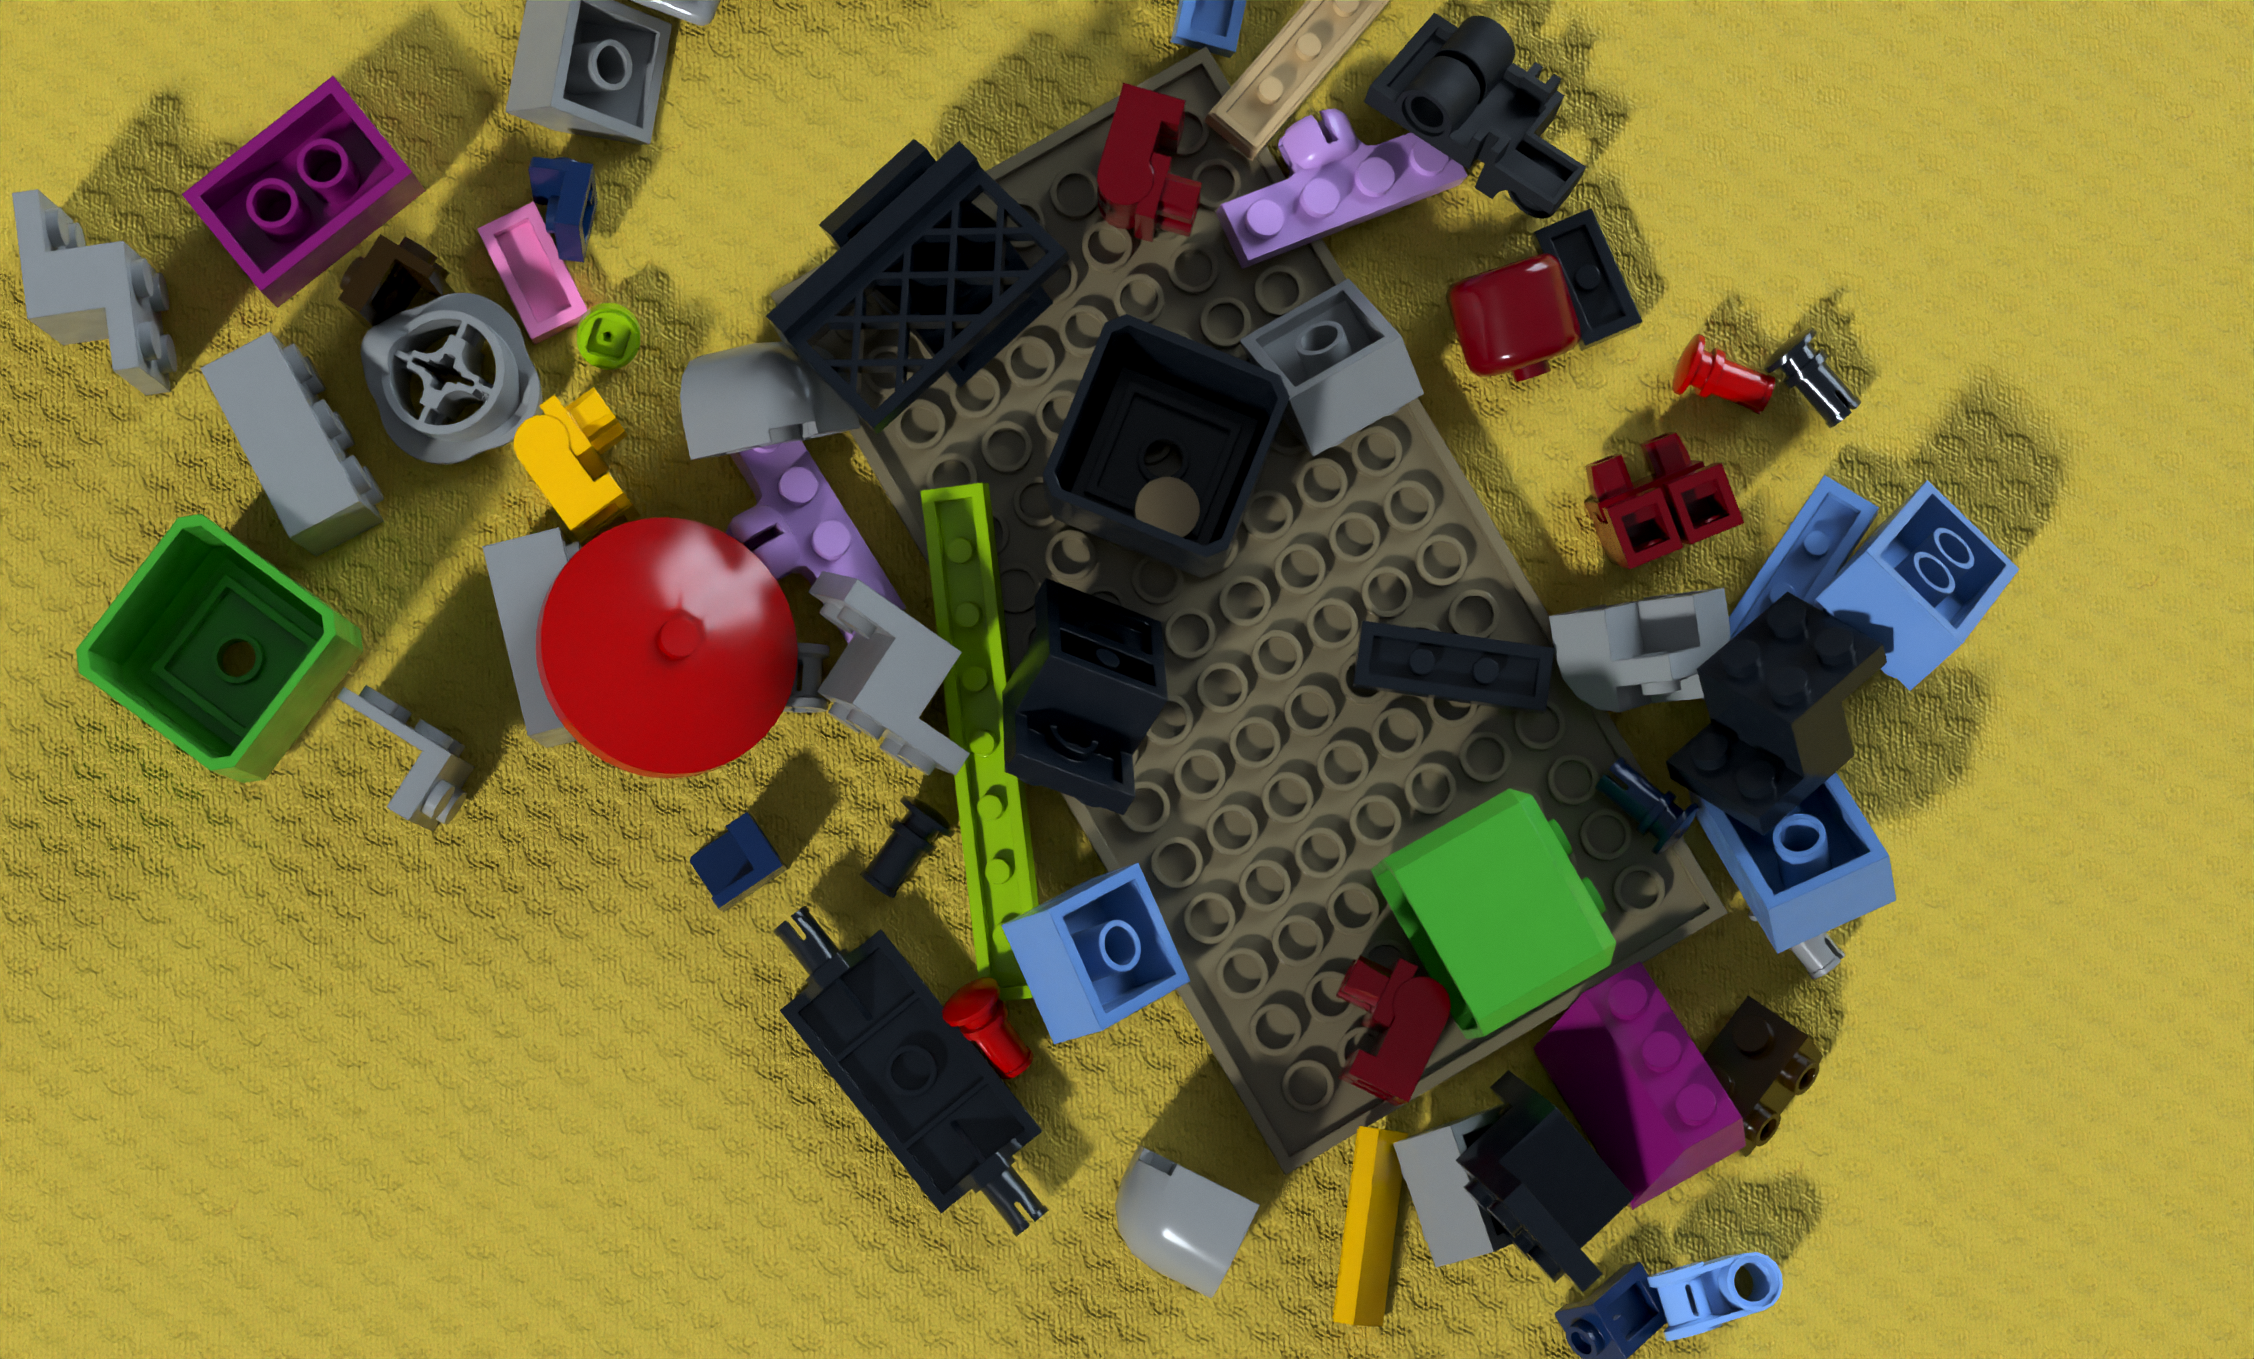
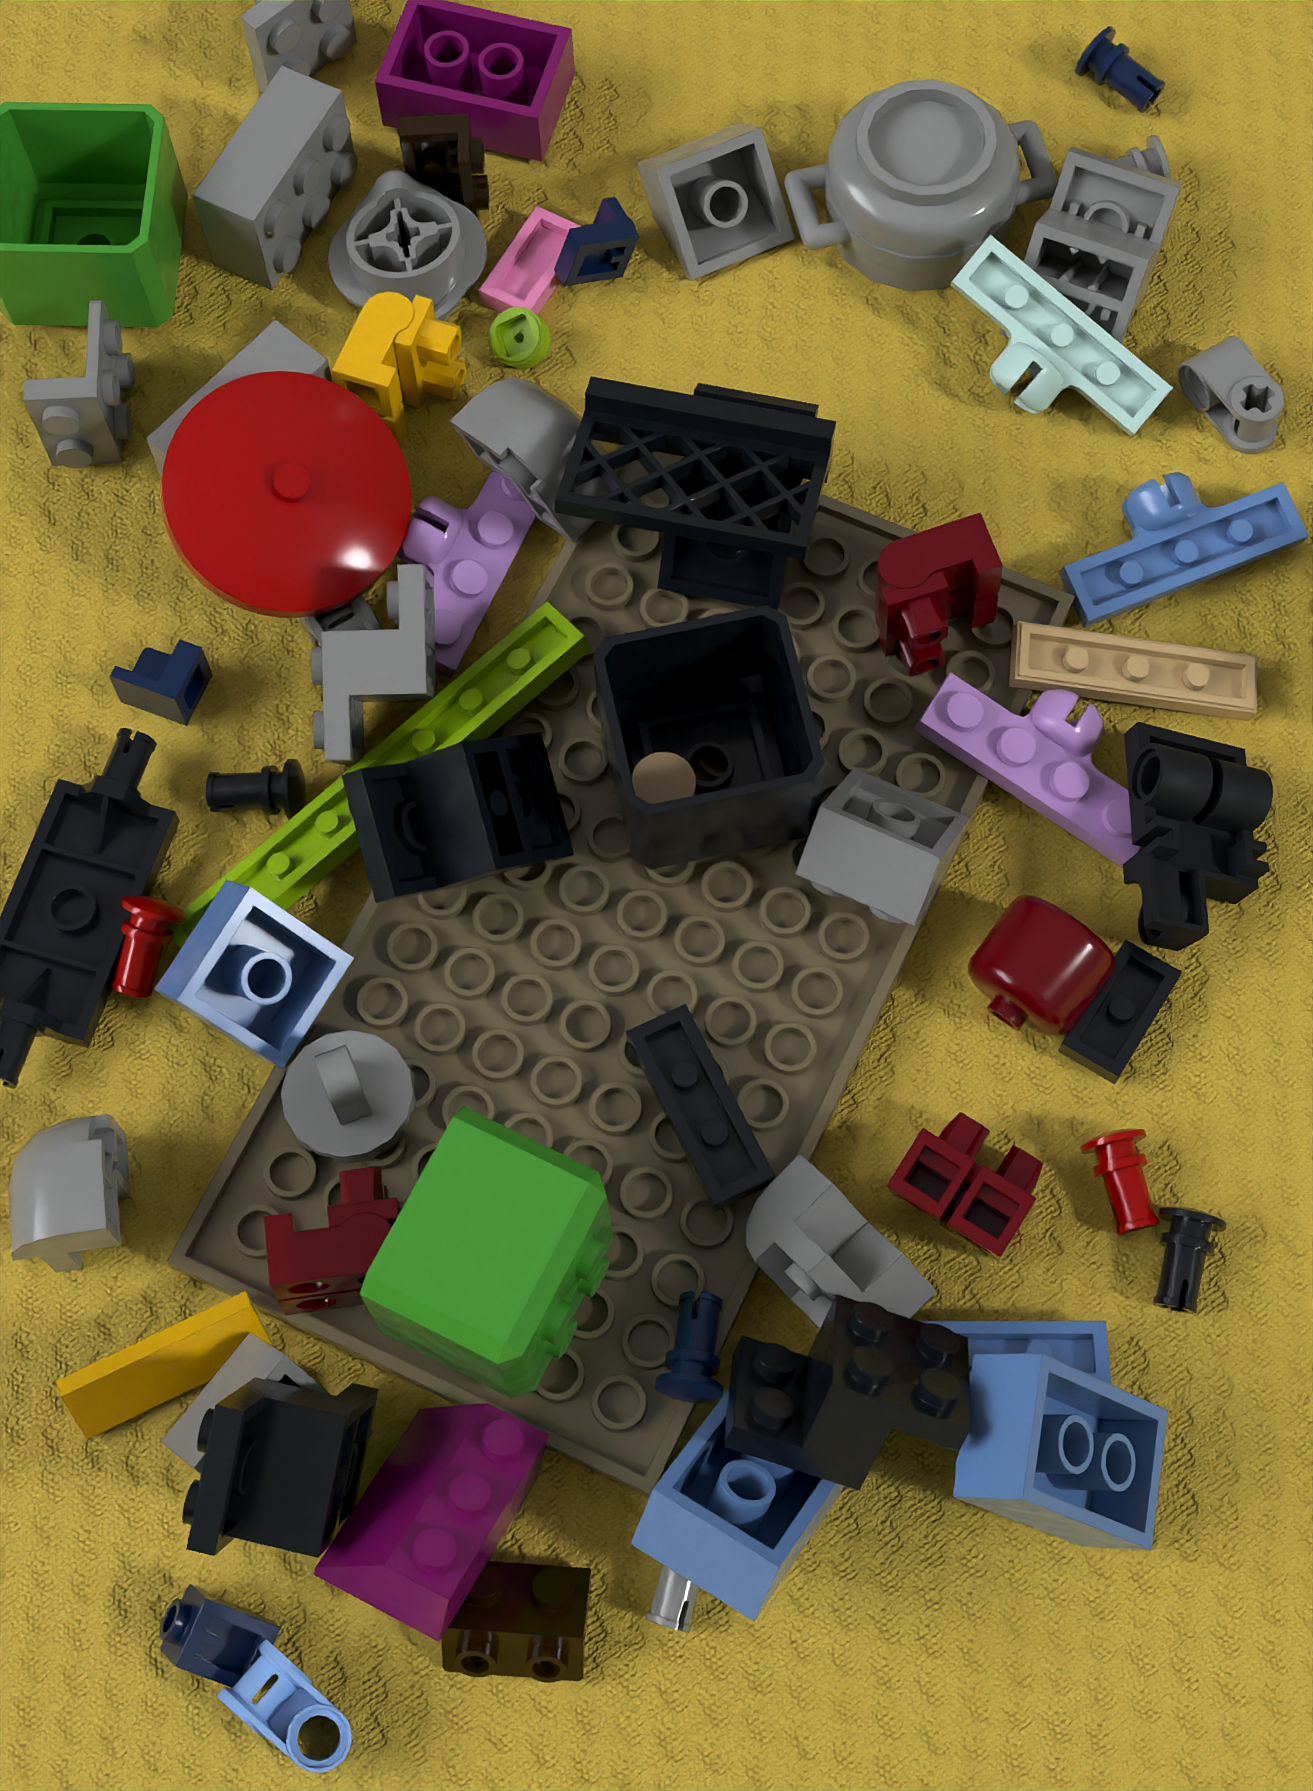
camera: 65 degrees right, 15 degrees down
(1248, 942) = (348, 1096): none -> light grey tile

